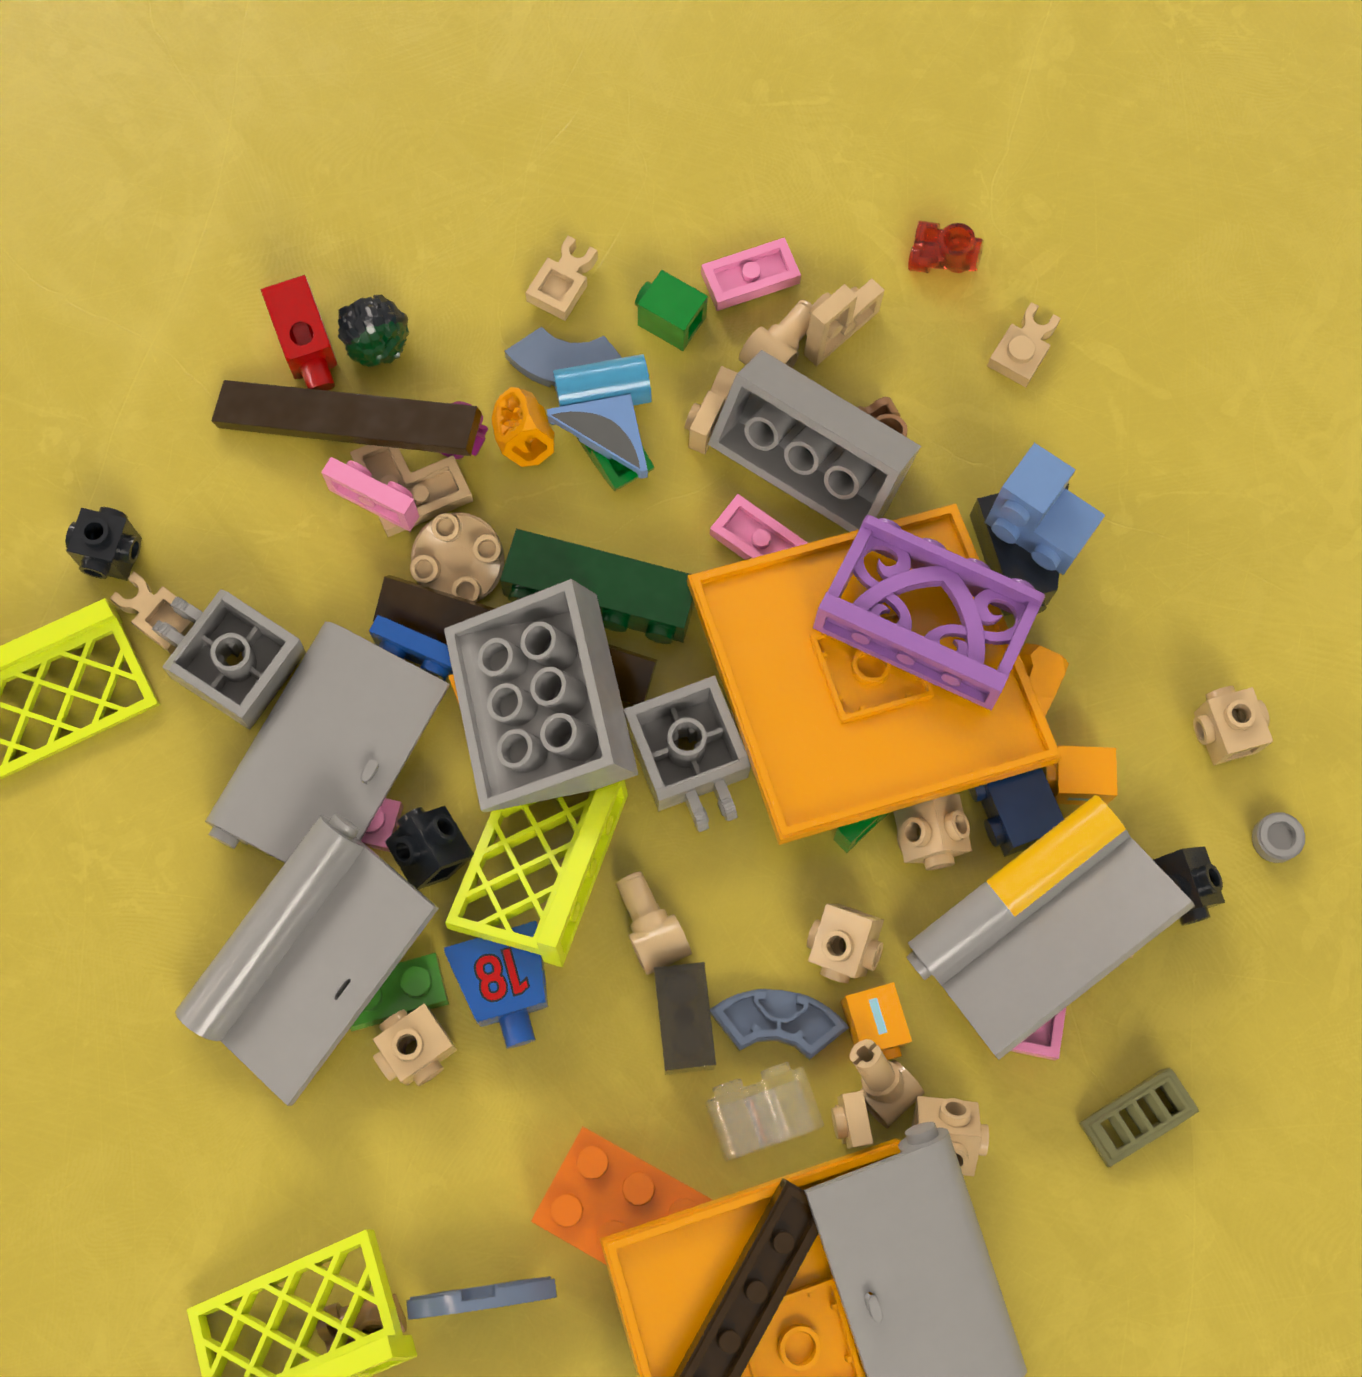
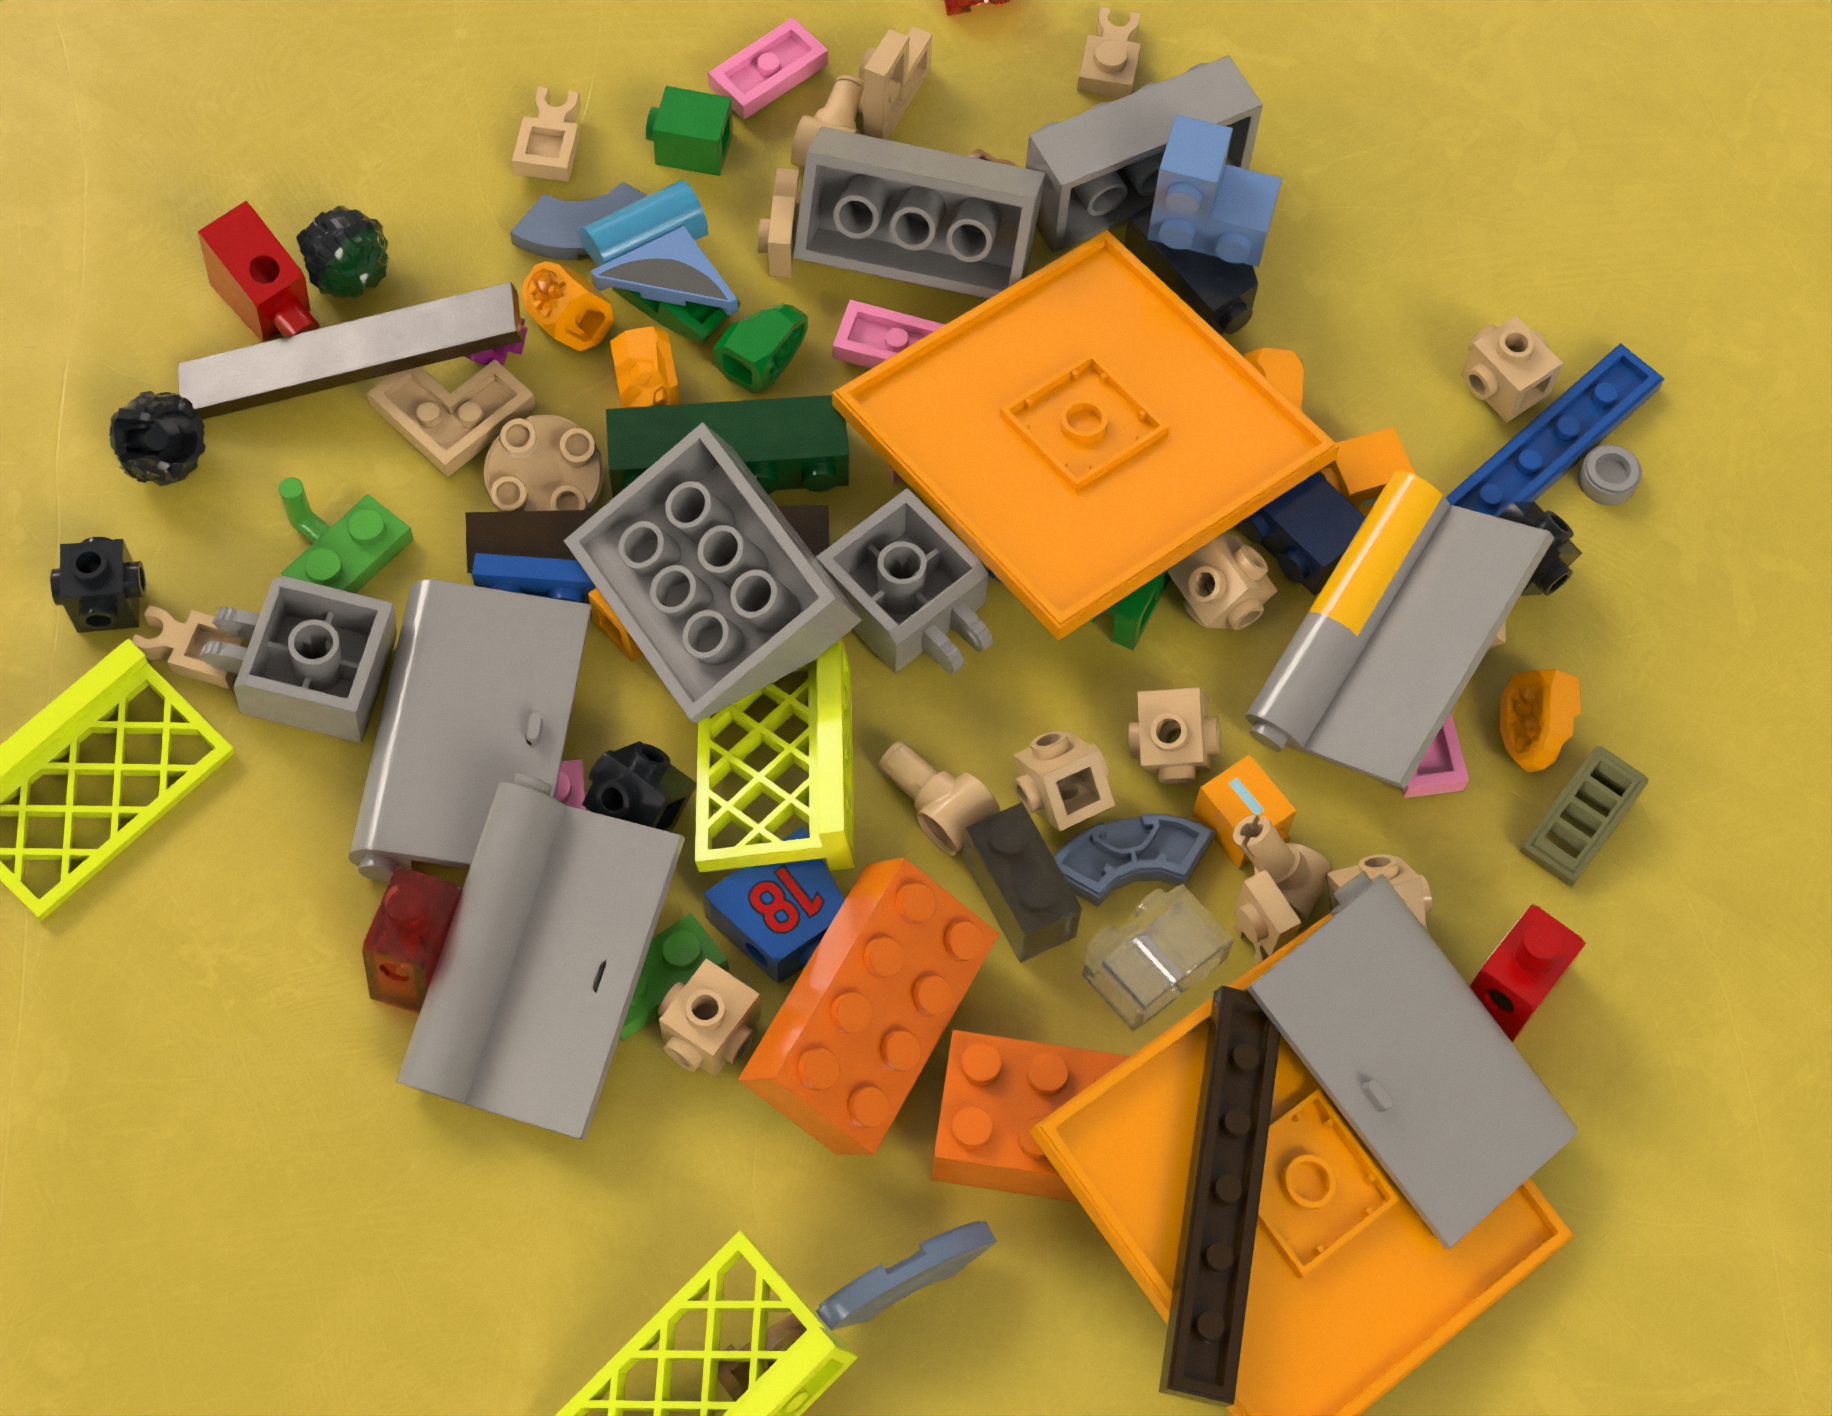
camera: 20 degrees left, 10 degrees down
(184, 440) = (157, 437): none -> black piece
(223, 900) = (408, 934): none -> clear red torso
(292, 572) = (350, 549): none -> bright green plate
(357, 485) = (415, 423): bright pink plate -> none
(530, 1084) = (869, 1007): none -> orange brick
(561, 504) = (644, 368): none -> light orange rock
(657, 508) = (760, 346): none -> green rock
(746, 949) = (1062, 779): none -> tan brick
(932, 566) = (1169, 298): medium lavender fence -> none
(983, 444) = (1110, 157): none -> light grey brick
(1032, 1236) = (1527, 968): none -> red torso
(1134, 1027) = (1538, 716): none -> light orange rock
(1240, 796) = (1560, 434): none -> blue tile

